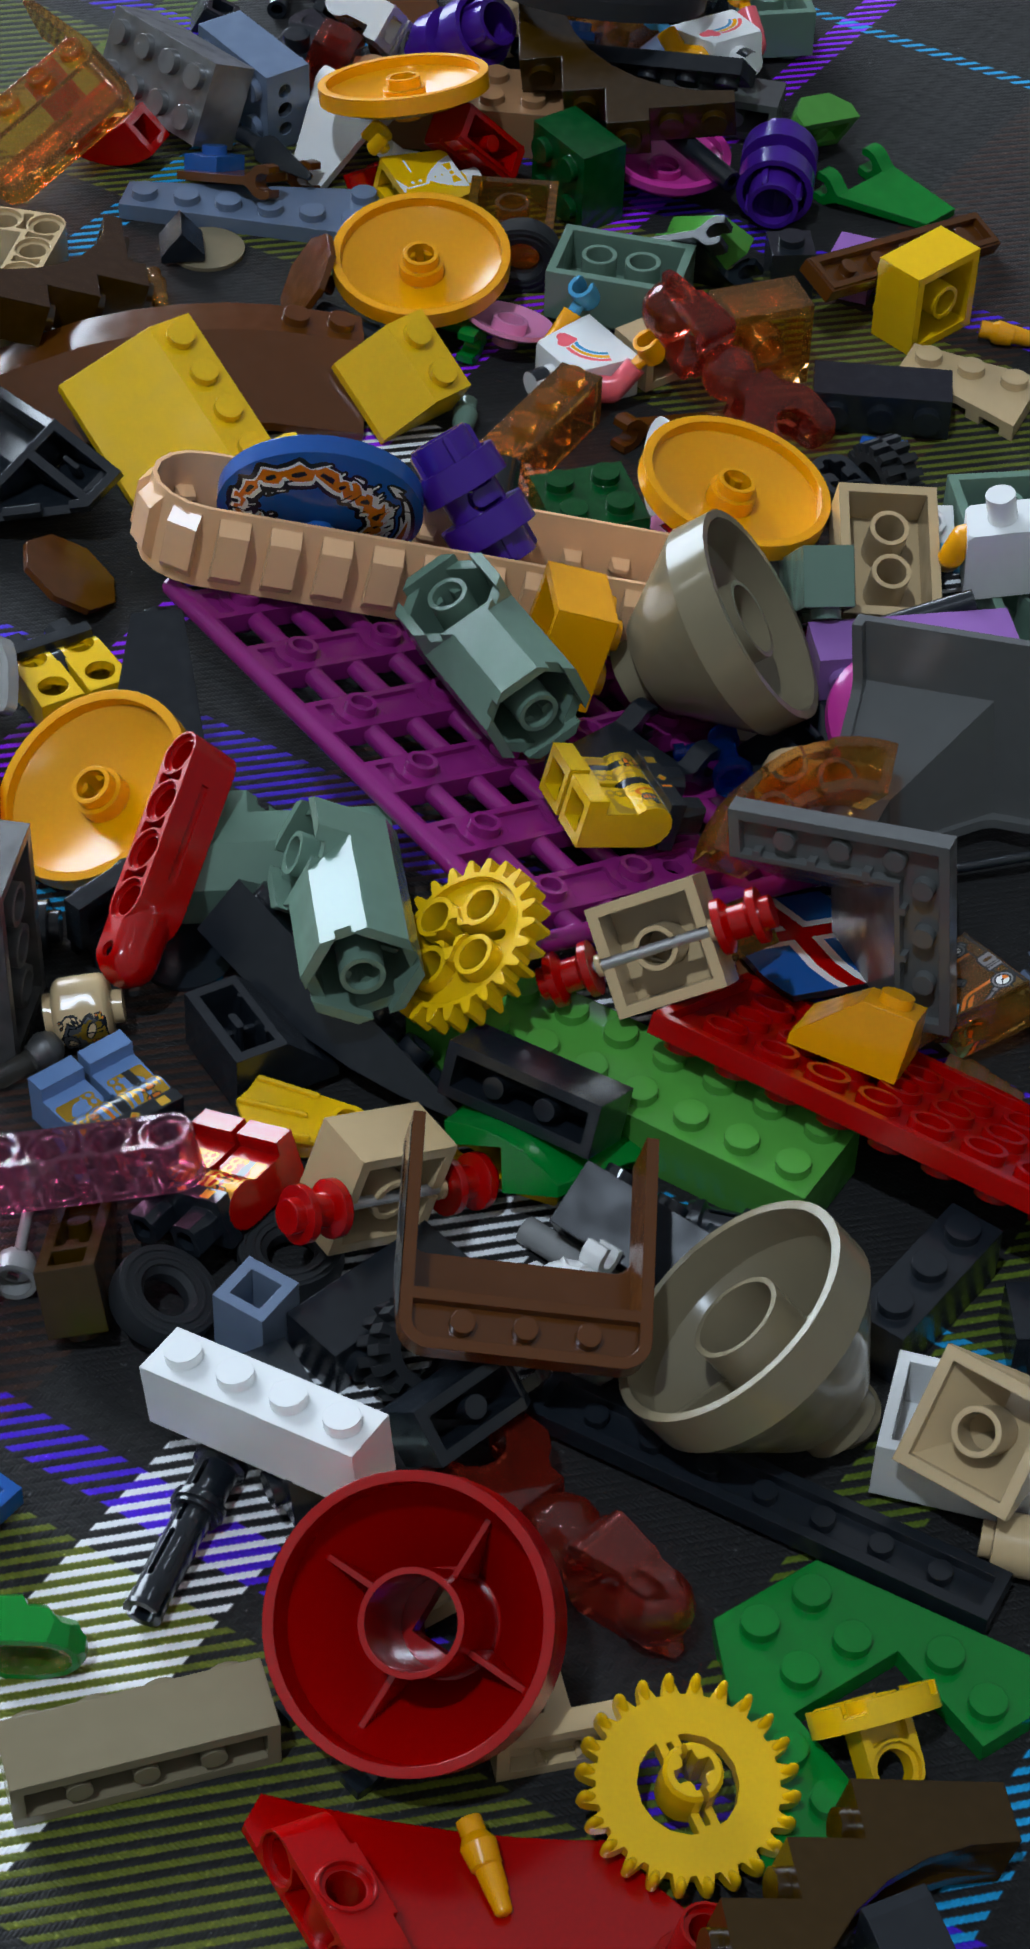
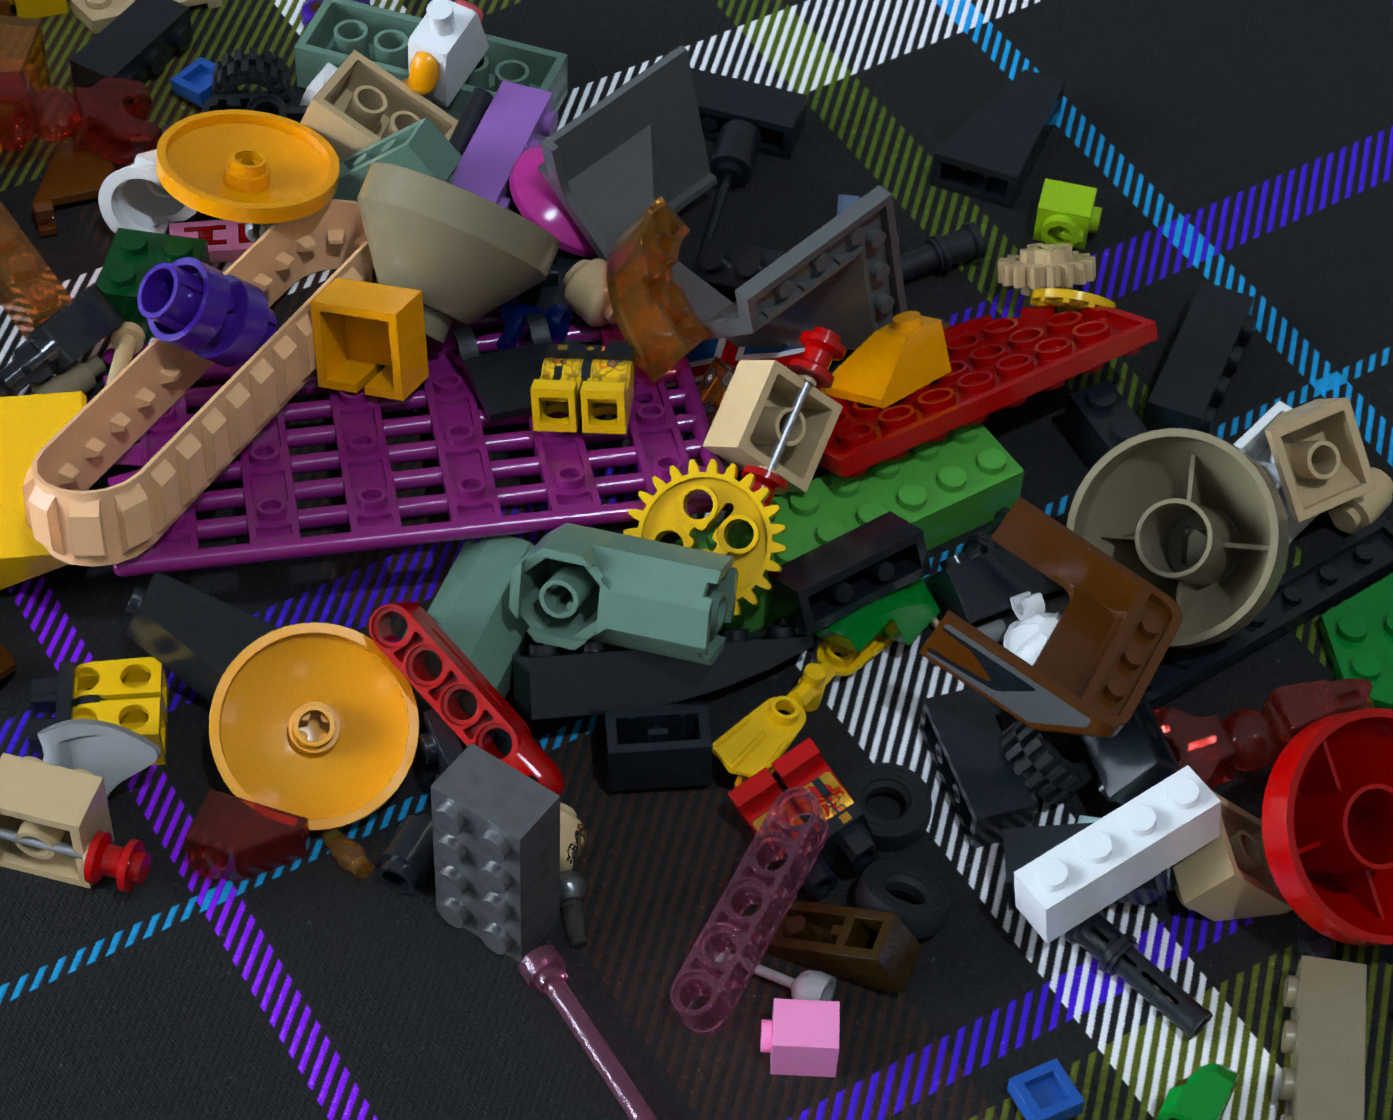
camera: 65 degrees left, 5 degrees up
(100, 1087) = (673, 862): medium blue hips -> none
(253, 1306) = (957, 840): sand blue brick -> none
(325, 484) = (152, 407): dish -> none
(354, 1181) = (880, 714): tan brick -> none
(492, 655) = (386, 386): sand green brick -> none

